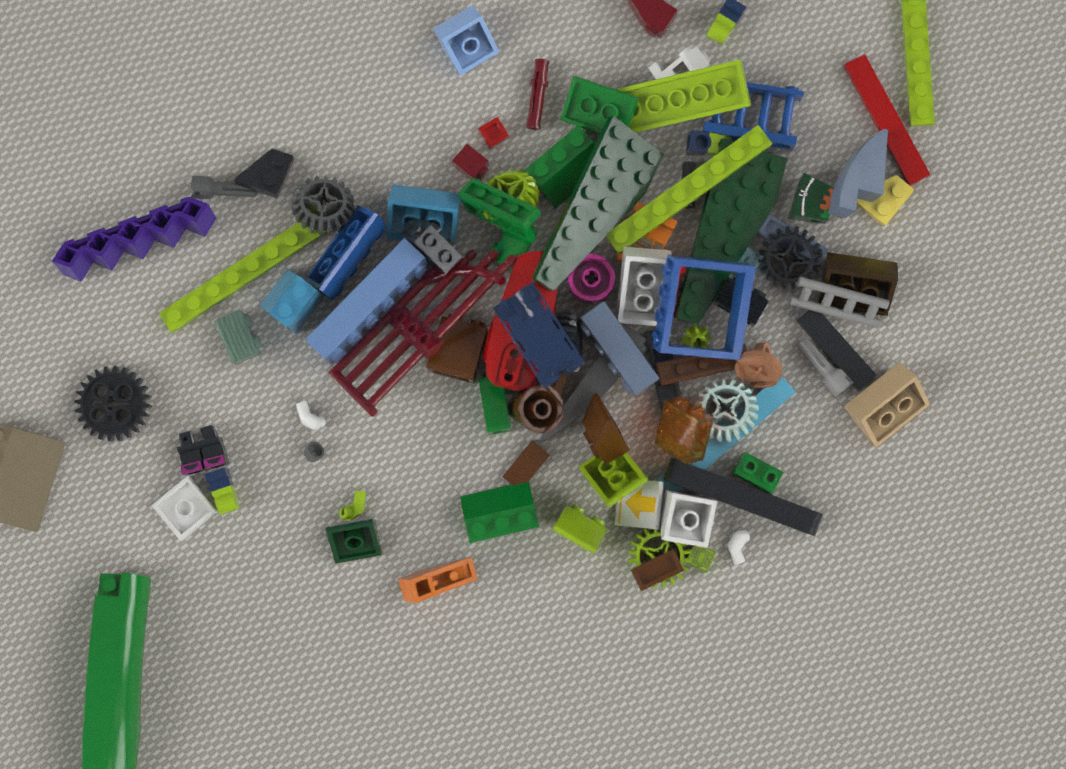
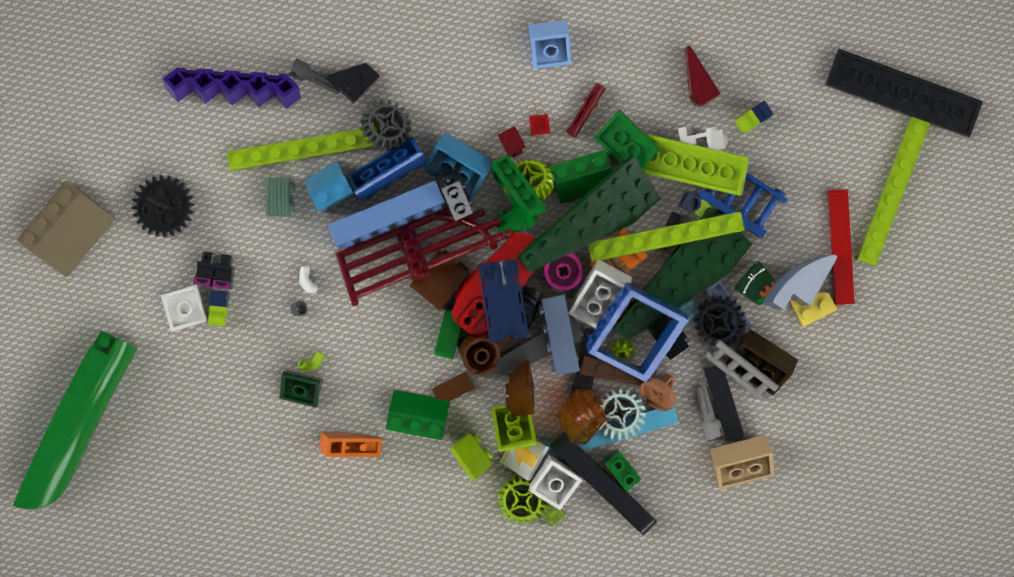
camera: 15 degrees right, 5 degrees up
(657, 570) = (515, 510): reddish brown tile -> none
(736, 544) = (583, 515): white arm -> none

